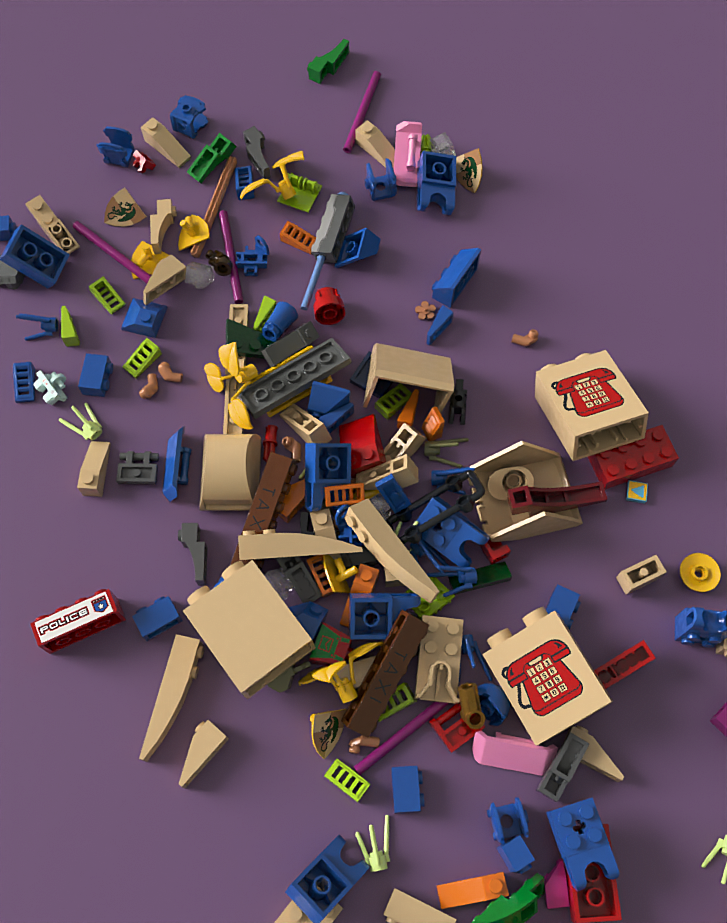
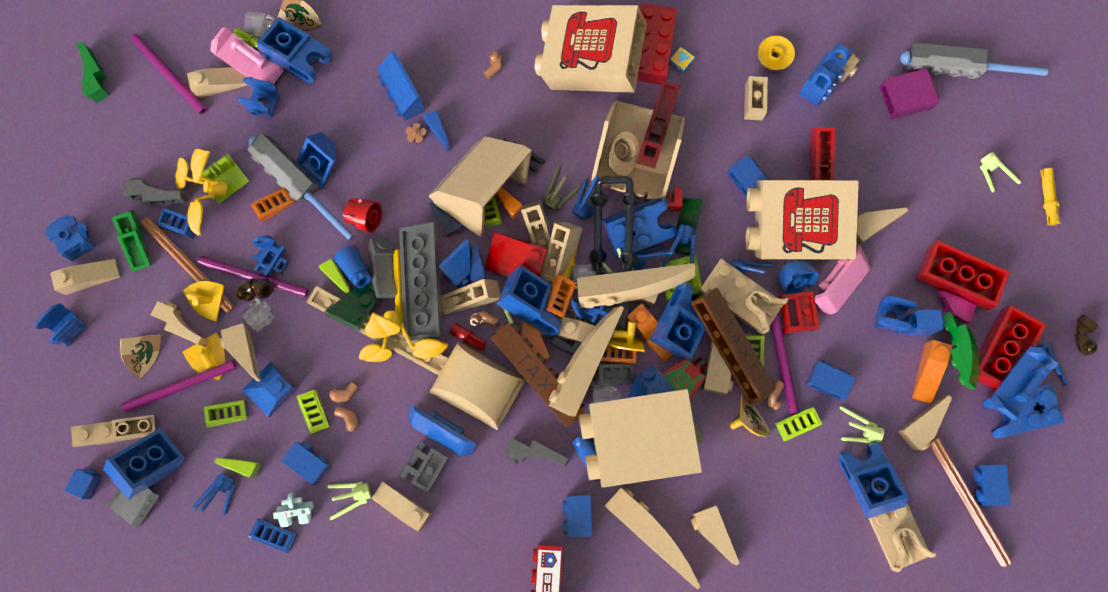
camera: 60 degrees left, 10 degrees up
(144, 162) = (91, 306): red tile -> none
(344, 685) = (724, 386): yellow plant -> none
(393, 493) = (580, 254): blue plate -> none
(433, 425) = (533, 187): orange slope -> none
(470, 704) = (796, 292): pearl gold piece -> none
(562, 767) = (877, 249): dark grey slope -> none
(582, 847) = (943, 266): blue brick -> none

